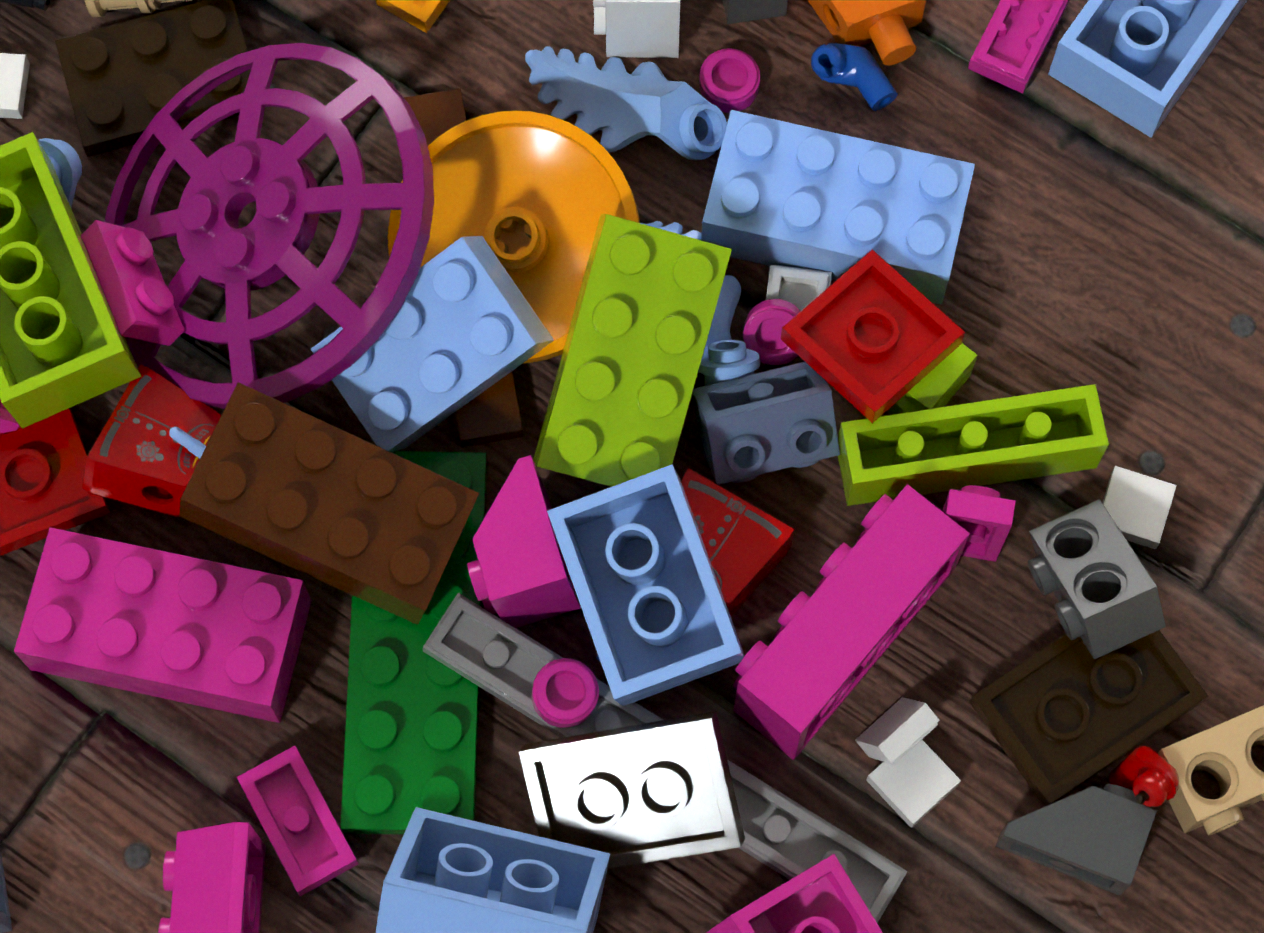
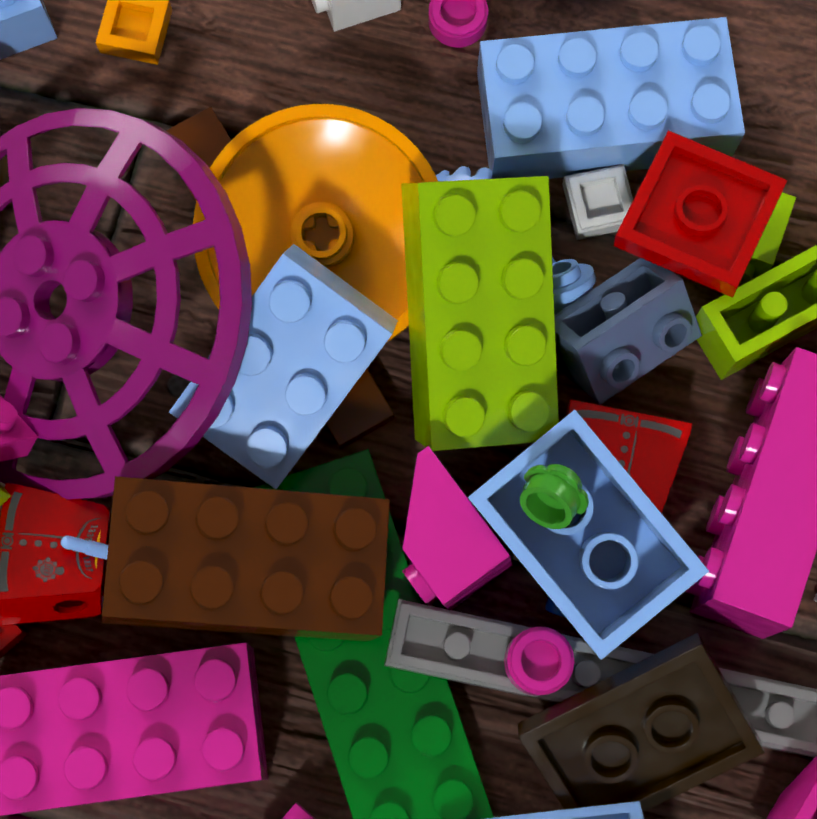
camera: 20 degrees left, 5 degrees up
(620, 531) = (553, 495): none -> bright green plate
(627, 103) = (374, 68): light blue plant -> none
(764, 330) = (591, 237): dark pink tile -> none

